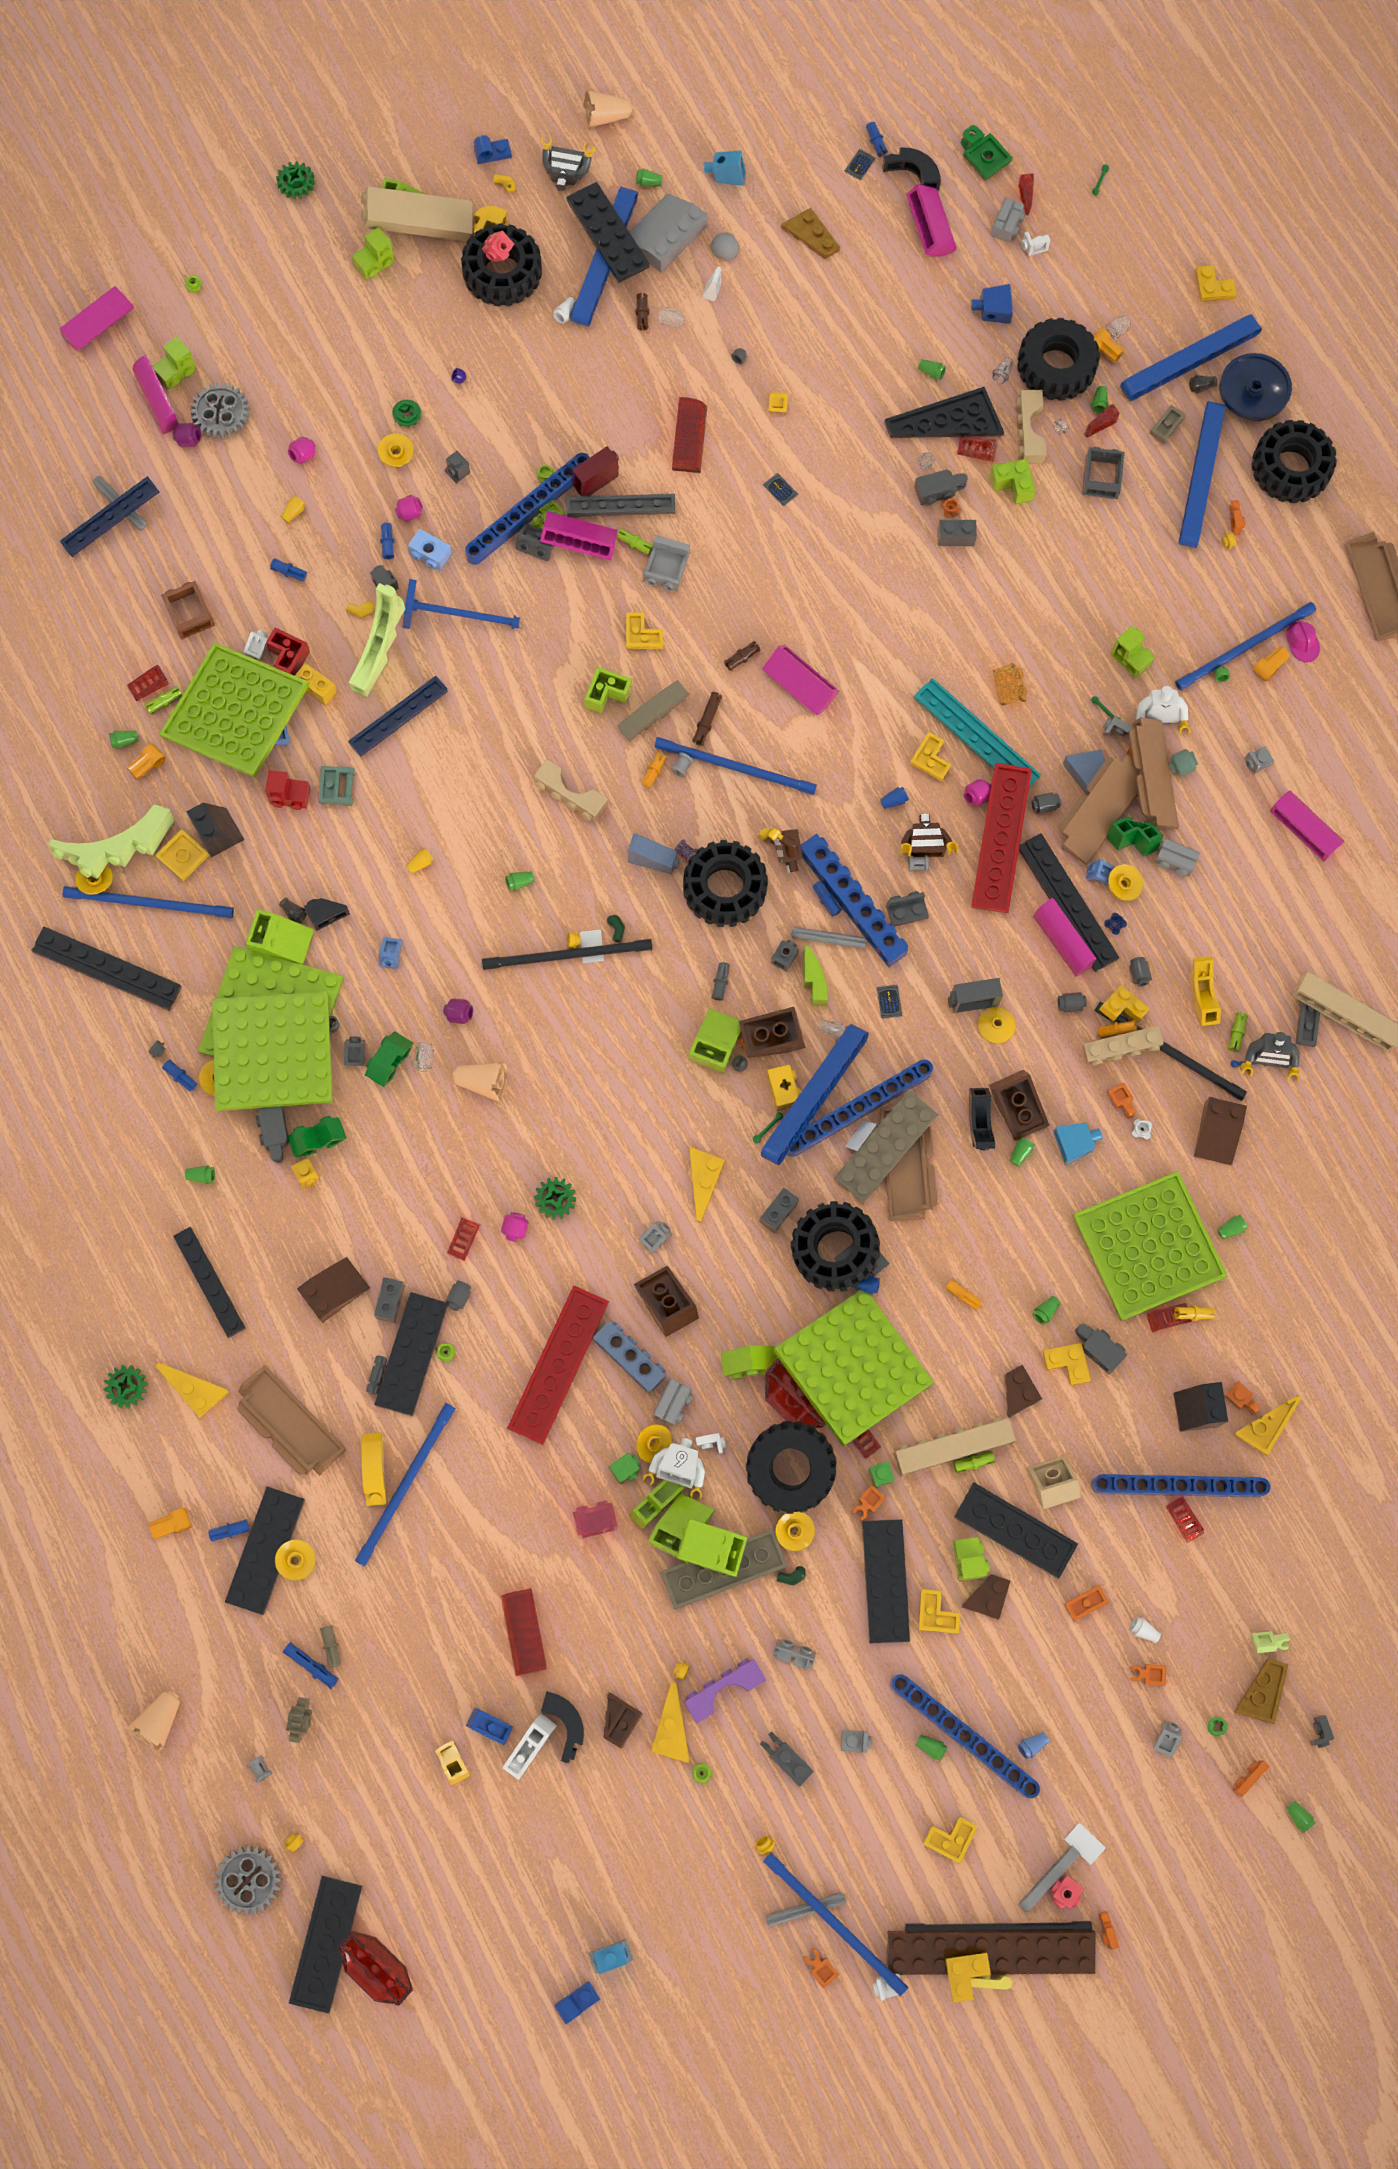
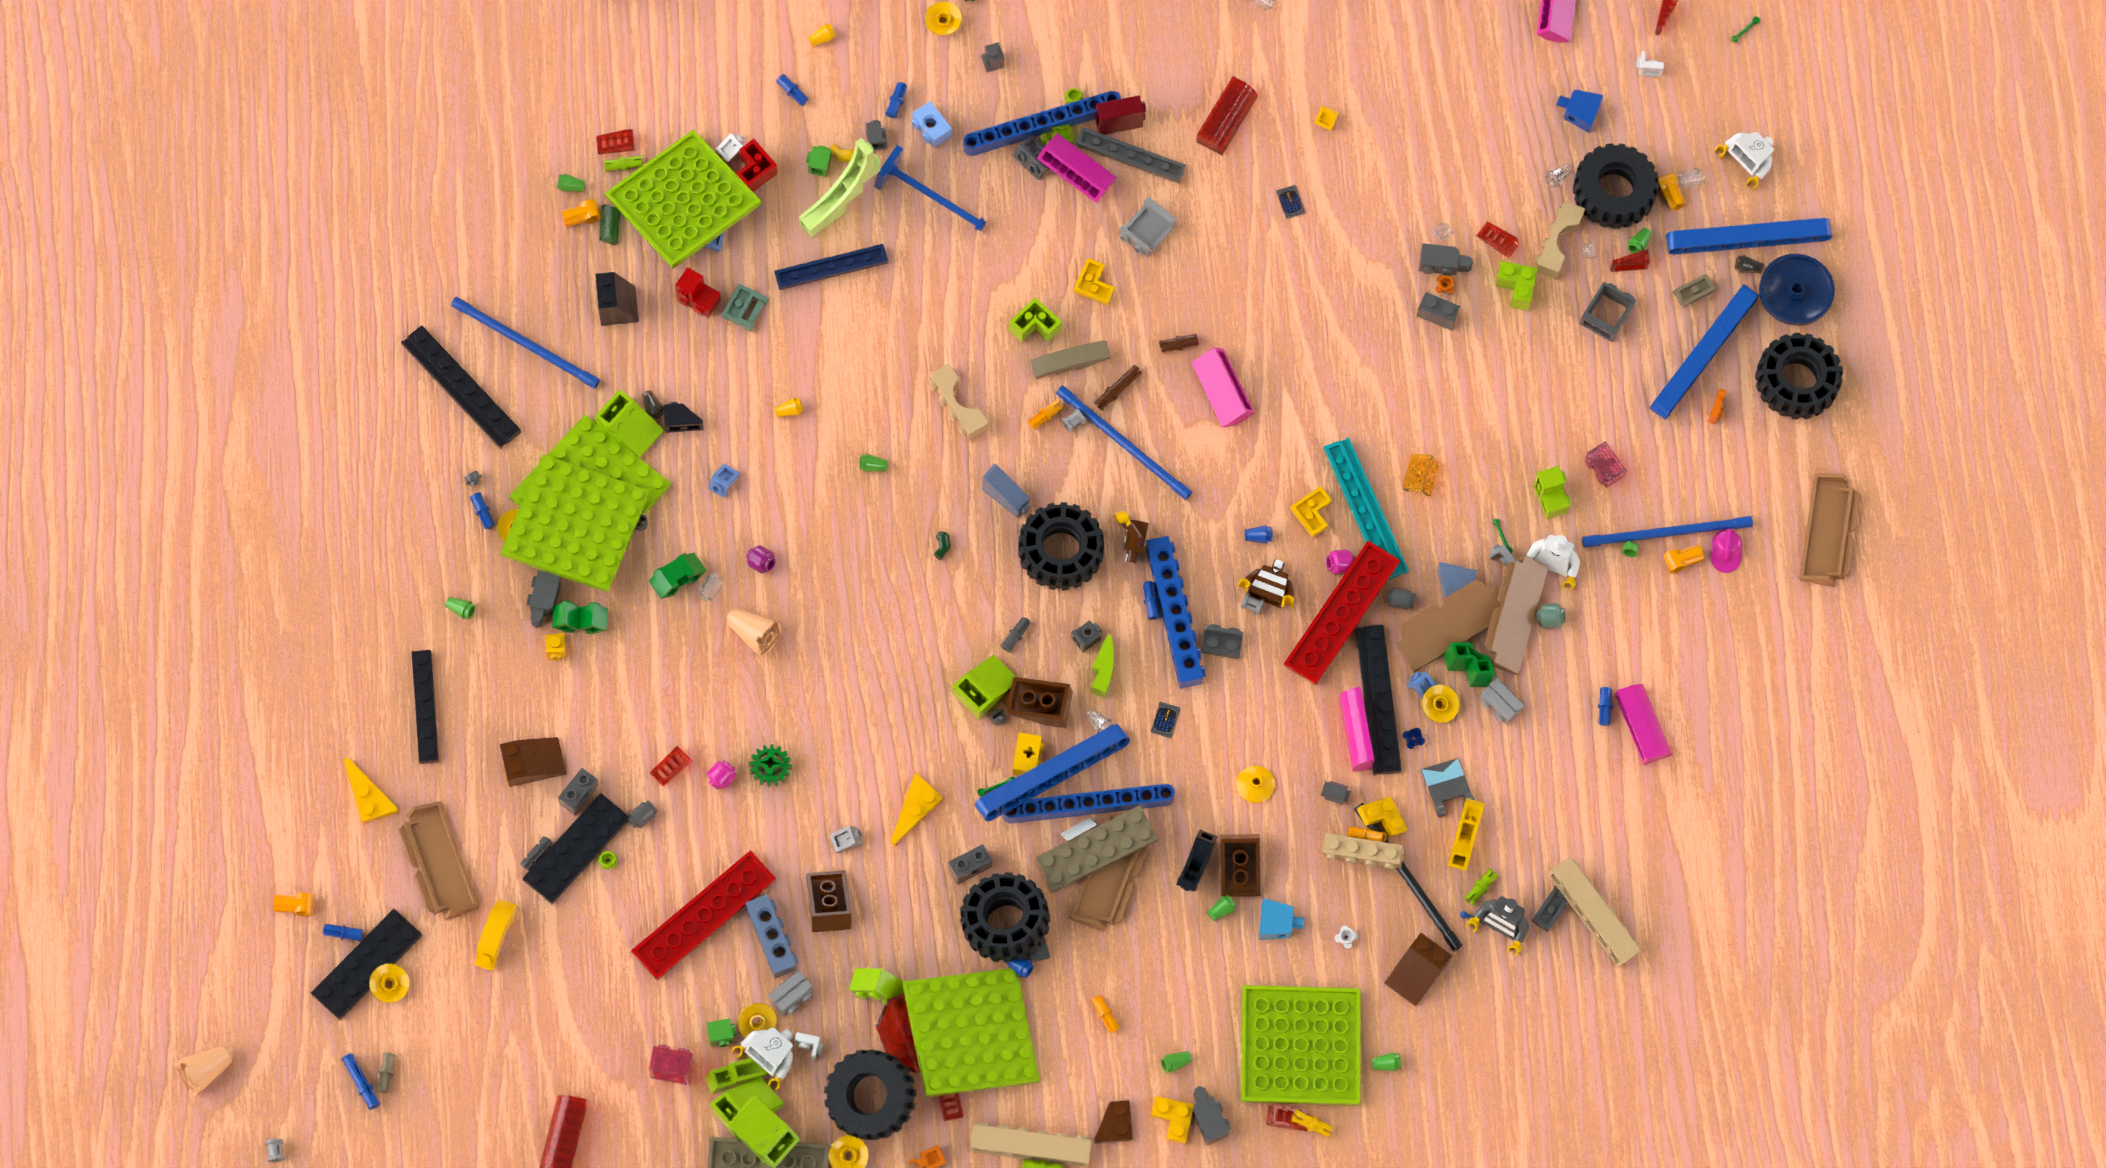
camera: 25 degrees right, 5 degrees down
(91, 885) = (486, 300): yellow dish -> none
(118, 850) = (520, 283): yellowish green arch -> none
(127, 1378) = (303, 760): green gear -> none
(177, 761) = (609, 224): none -> clear green tile
(182, 855) = (575, 312): yellow plate -> none
(196, 624) = (683, 106): dark orange window -> none
(299, 1720) = (329, 1121): dark tan gear -> none
(320, 687) = (770, 210): yellow brick -> none
(342, 624) = (819, 160): none -> bright green brick
(354, 1051) = (649, 556): dark grey bracket -> none
(368, 1548) = (458, 1002): blue piece -> none
(409, 508) = (930, 78): dark pink head -> none
(497, 962) = (818, 530): black piece -> none
(573, 939) = (897, 539): yellow plate -> none
(591, 939) = (912, 552): white sticker -> none
(634, 541) = (1127, 194): lime pin -> none
(685, 850) = (1038, 499): clear purple bush -> none
(739, 356) = (1310, 59): dark grey hinge -> none
(828, 937) = (1135, 637): light grey axle -> none
(881, 1474) = (950, 1140): bright green brick -> none
(933, 369) = (1491, 146): bright green cone -> none
(954, 417) = (1491, 200): black wing -> none
(975, 995) = (1245, 746): dark grey window -> none
(1007, 220) = (1633, 32): light grey brick -> none
(1122, 1097) = (1340, 899): orange plate -> none
(1140, 971) = (1414, 791): dark grey brick -> none
(1160, 283) = (1751, 152): none -> white torso
(1163, 951) = (1446, 783): none -> dark grey flag
(1165, 609) = (1605, 464): none -> clear pink brick
(1213, 289) = (1803, 178): yellow plate -> none
(1228, 540) = (1699, 425): yellow plate -> none
(1259, 759) = (1627, 643): light grey bracket -> none
(1267, 823) = (1605, 706): none -> blue axle

